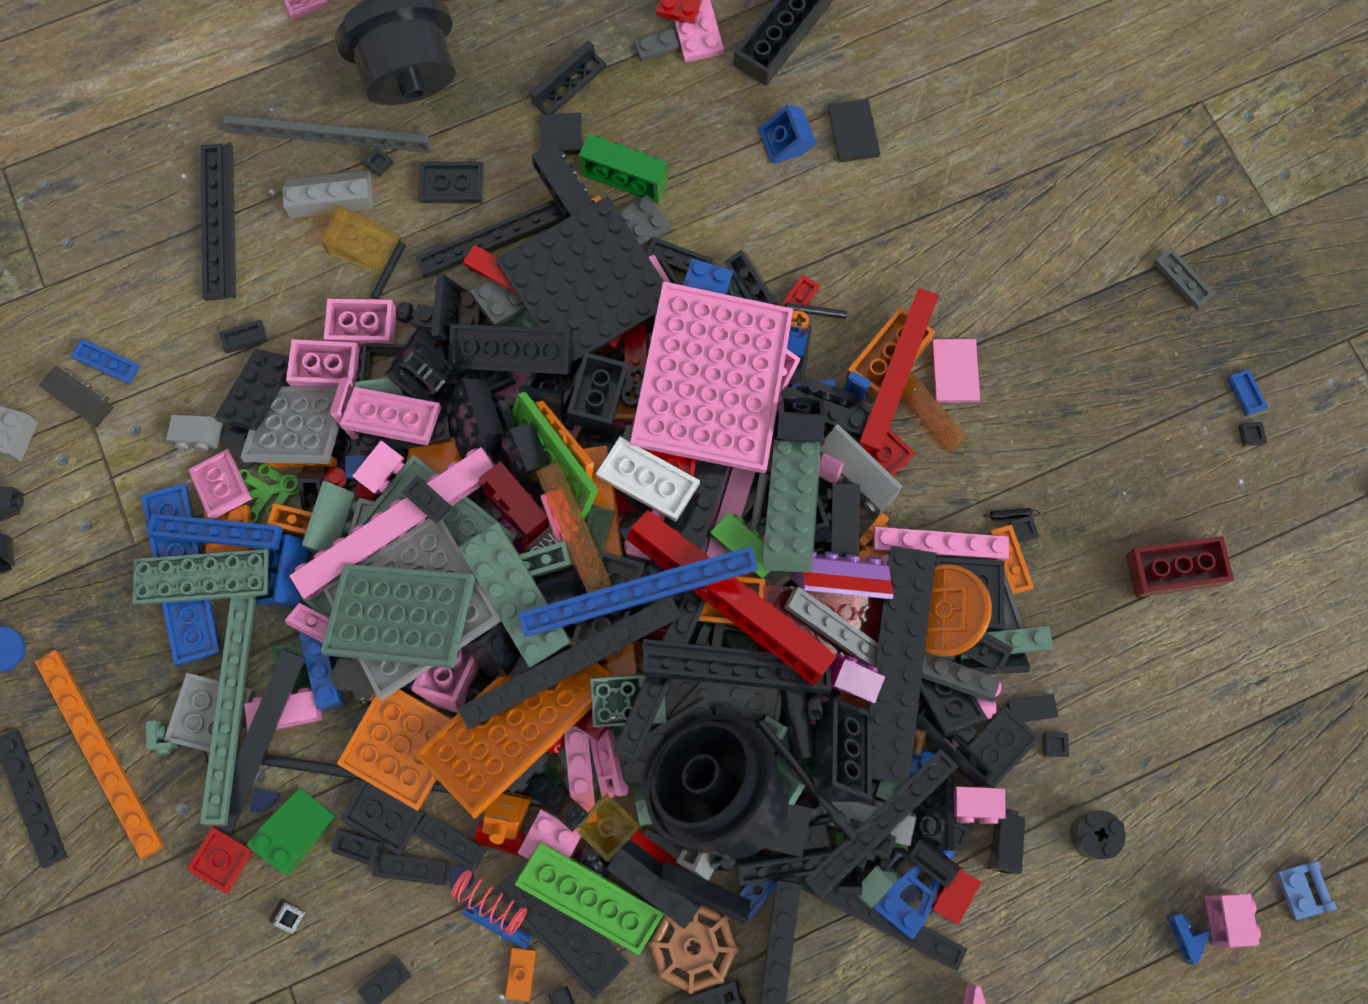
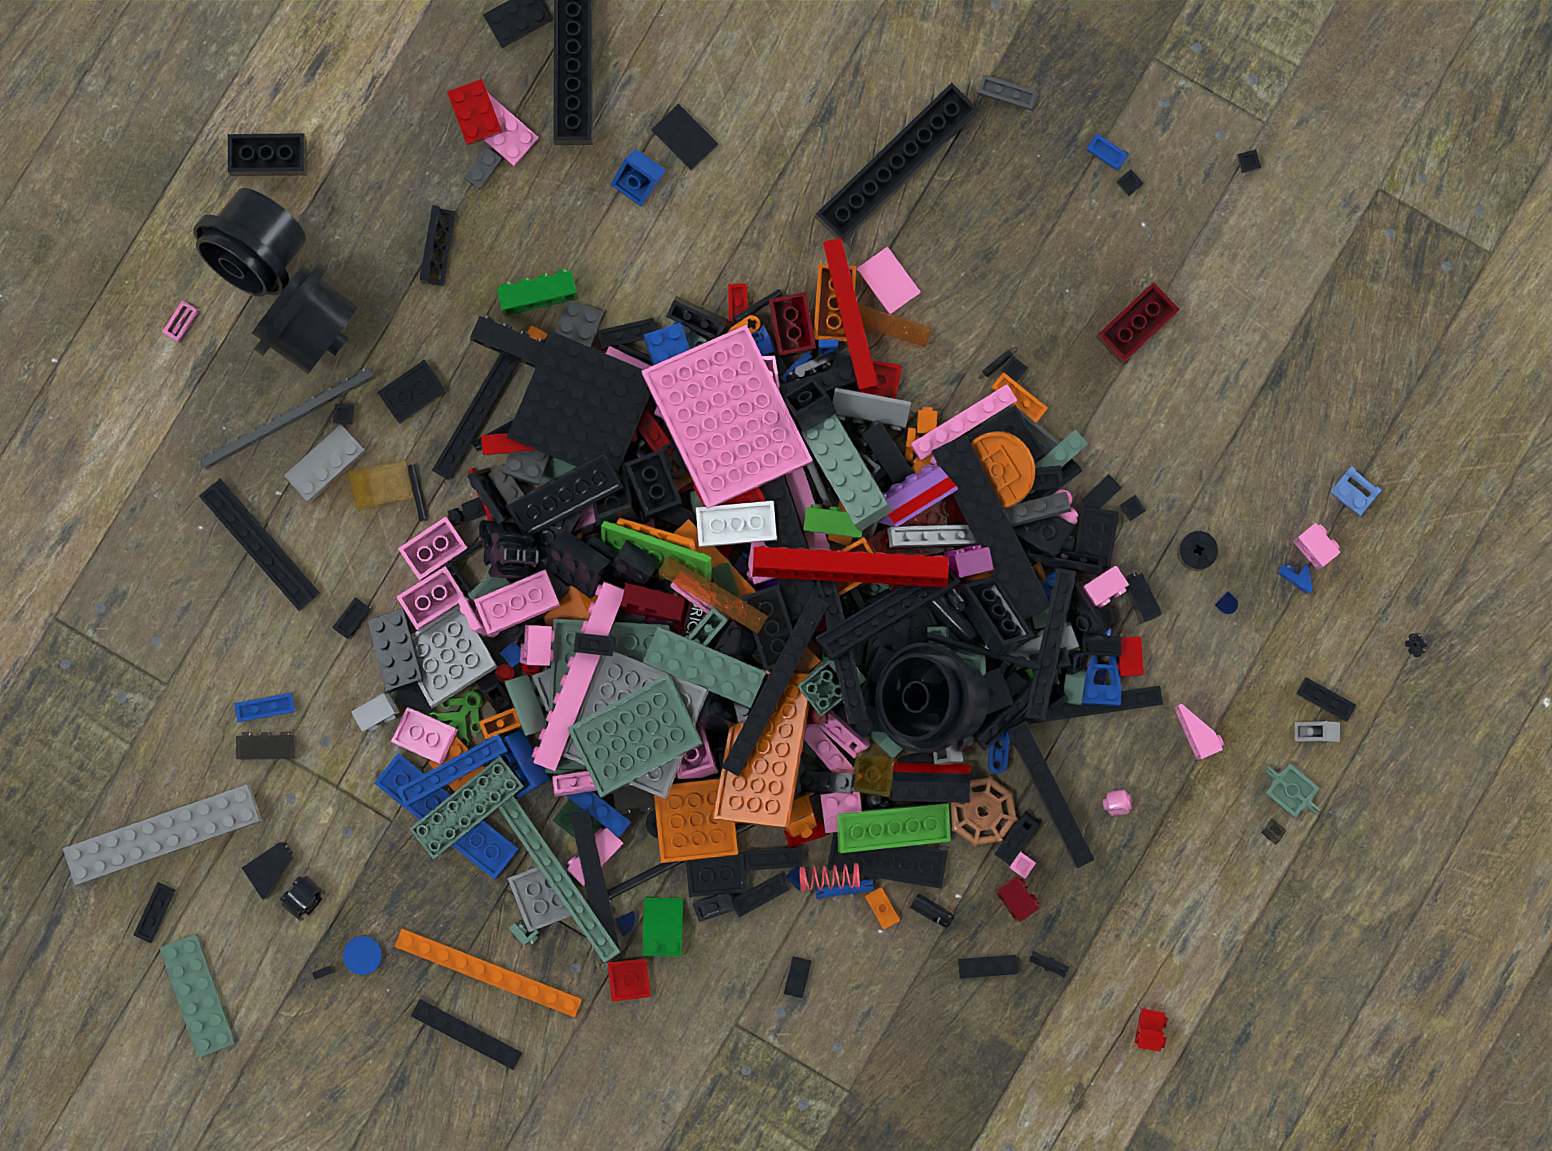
camera: 40 degrees left, 10 degrees up
(286, 916) = (700, 983): slope -> none
(563, 130) = (464, 293): black tile -> none
(638, 591) = (789, 607): blue plate -> none
(704, 892) = (965, 770): black tile -> none
(830, 468) = (850, 421): bright pink tile -> none
(836, 345) = (792, 324): none -> dark red slope
(905, 517) = (926, 420): none -> orange brick
(1037, 270) = (896, 163): none -> black brick
(1093, 912) = (1227, 604): none -> clear blue tile

